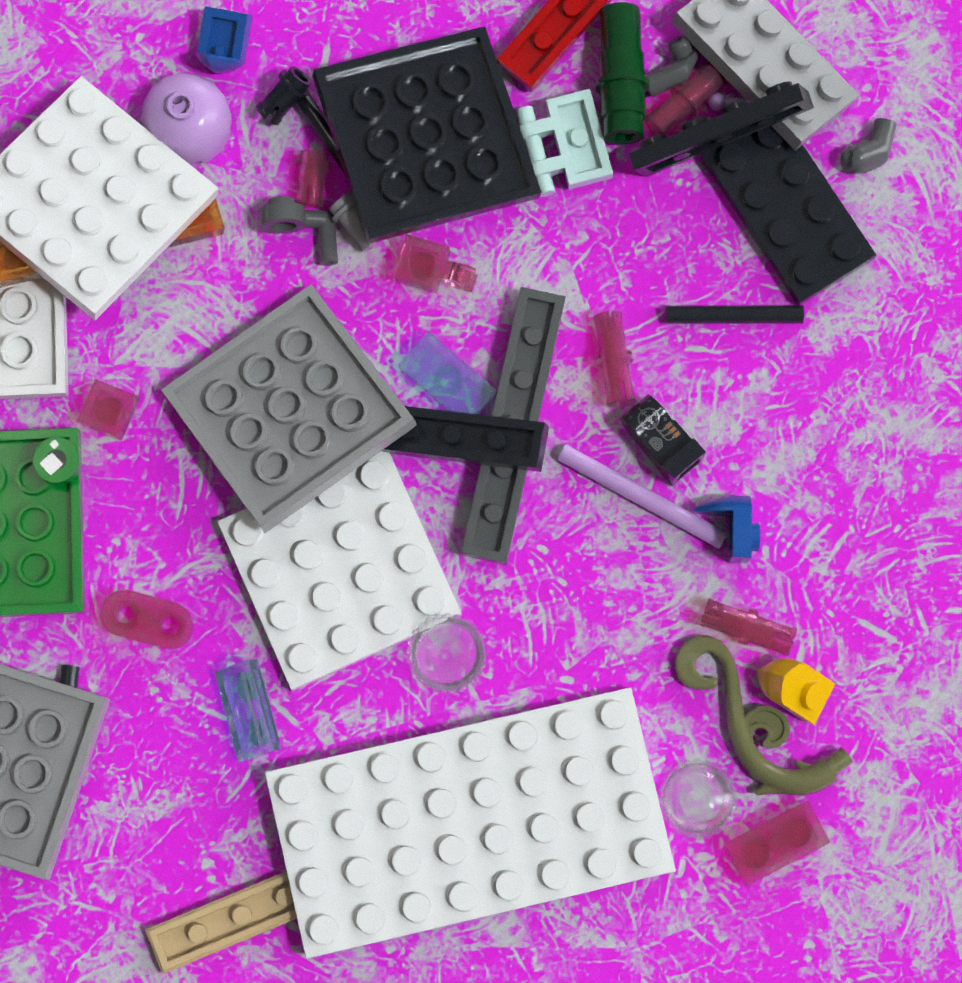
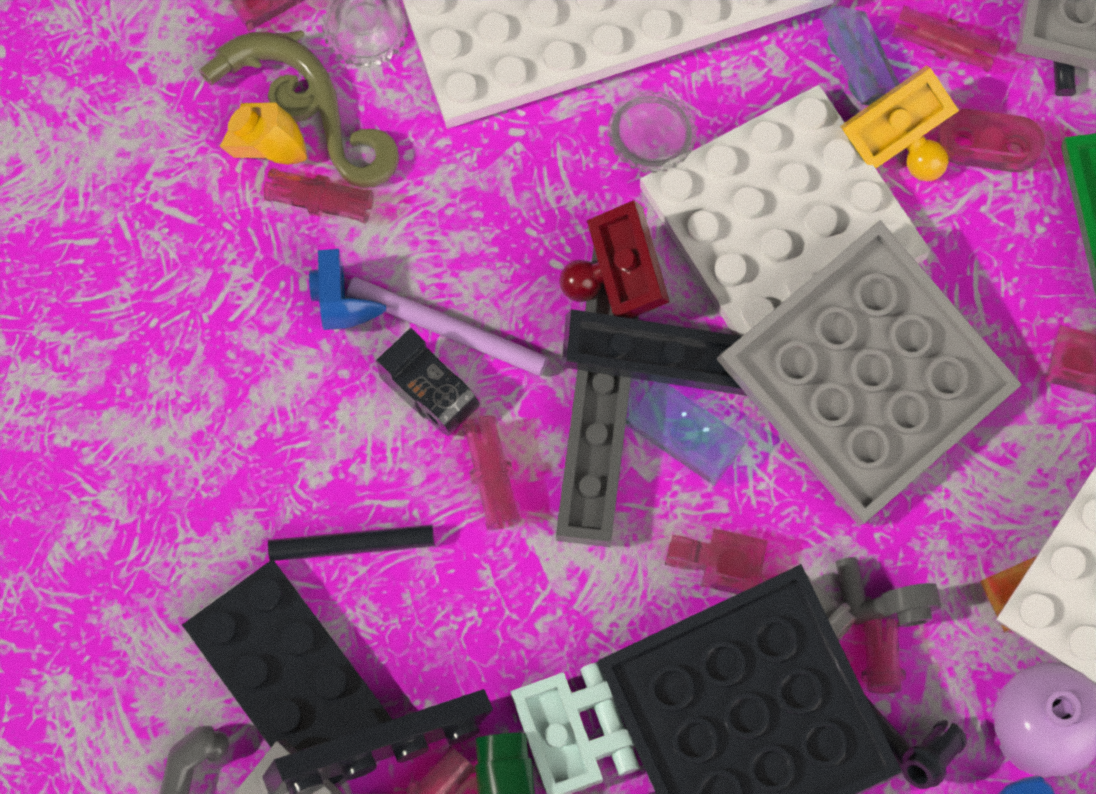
camera: 175 degrees right, 10 degrees down
(169, 724) = (946, 38): none -> clear pink pin
(222, 639) = (900, 122): none -> yellow plate
(486, 519) = (624, 264): none -> dark red plate

